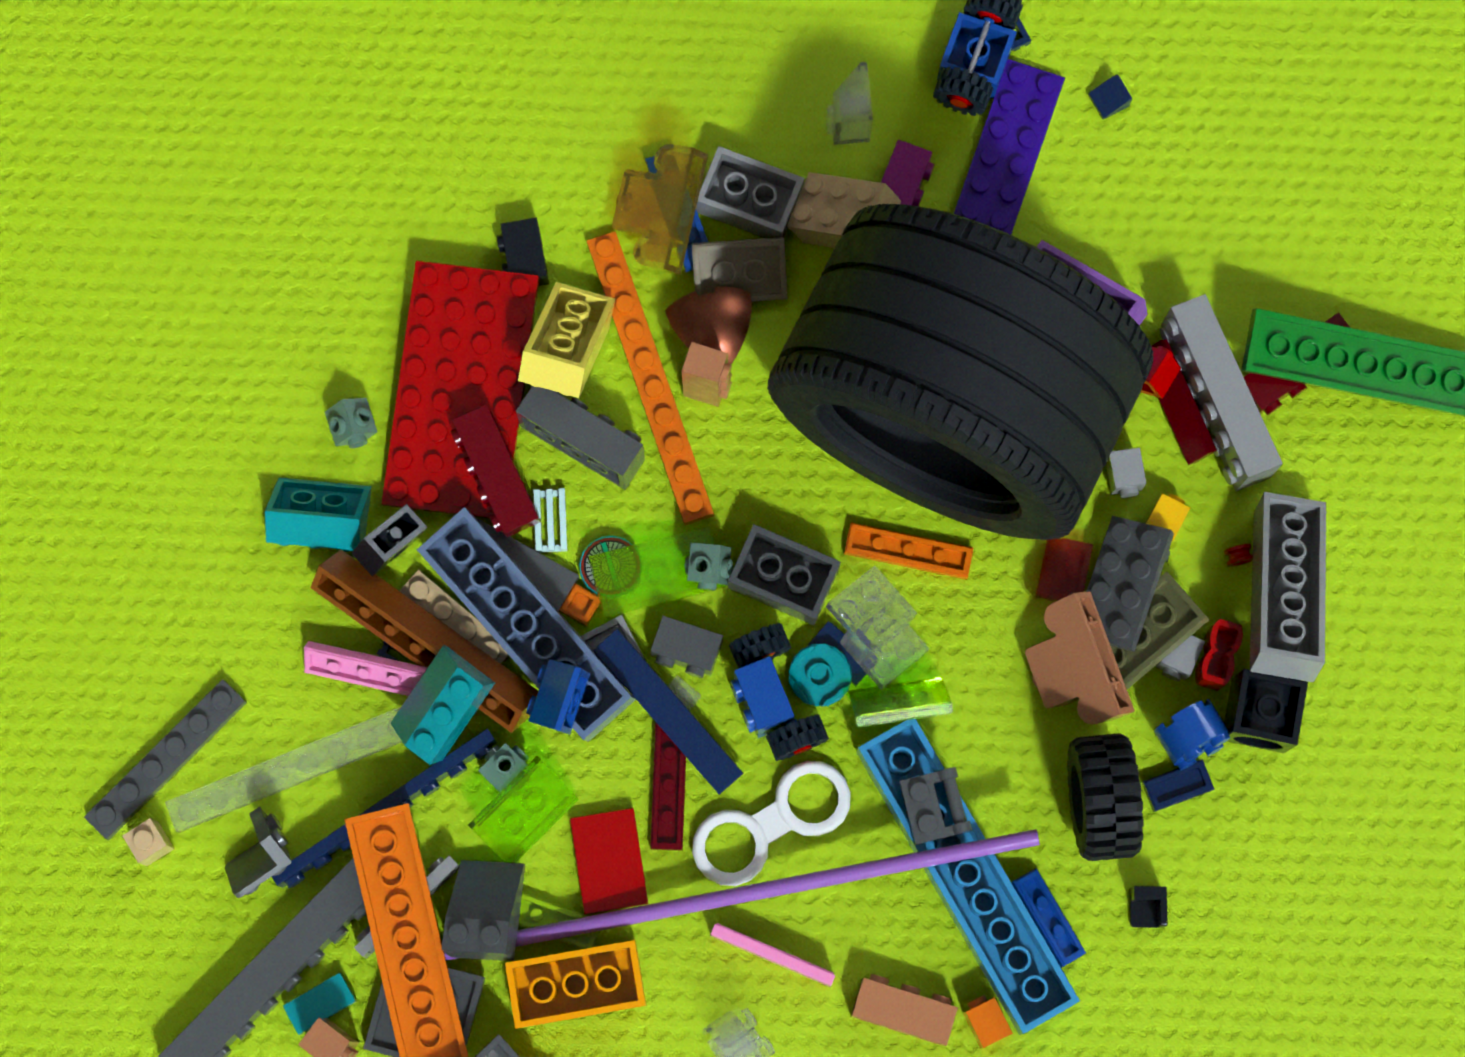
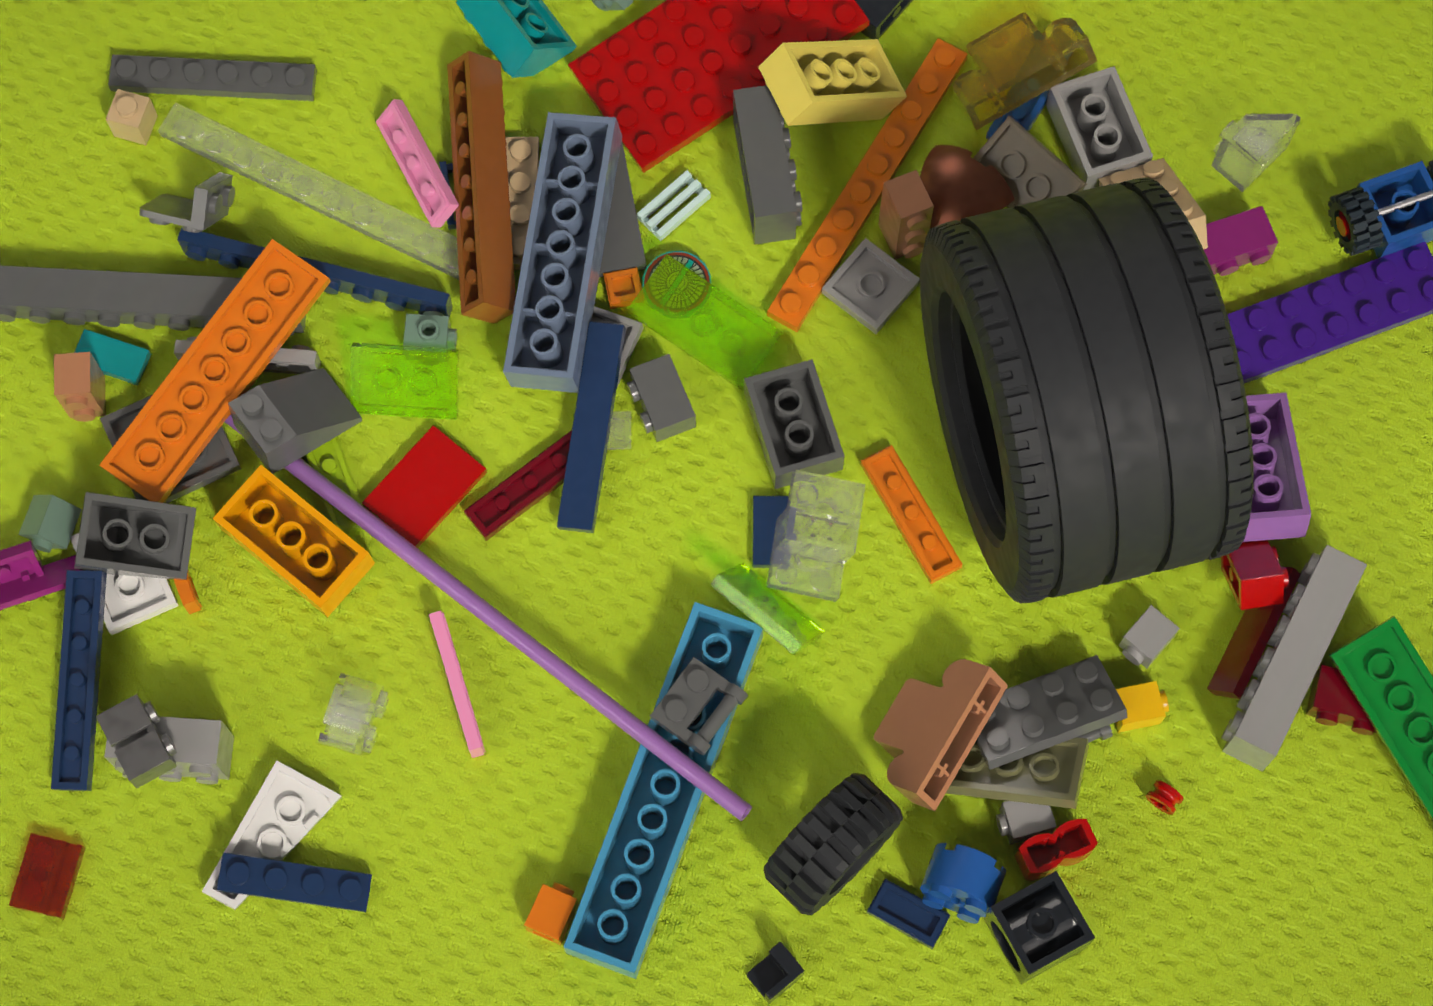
camera: 50 degrees right, 5 degrees down
(389, 540) = (539, 89): black brick -> none
(441, 705) = (432, 238): teal slope -> none
(496, 471) = (671, 122): dark red brick -> none
(558, 696) = (519, 318): blue slope -> none
(709, 565) = (744, 352): sand green brick -> none
(726, 439) = (870, 286): none -> light grey plate
(764, 697) = (672, 491): brick -> none
(771, 823) = (572, 592): white bar -> none
(820, 674) = (735, 527): teal tile -> none
(904, 1010) = (503, 834): nougat brick -> none
(1048, 917) = (688, 893): blue tile -> none
(1063, 568) = (1015, 653): clear red plate -> none
(1288, 587) = (1168, 853): light grey brick -> none

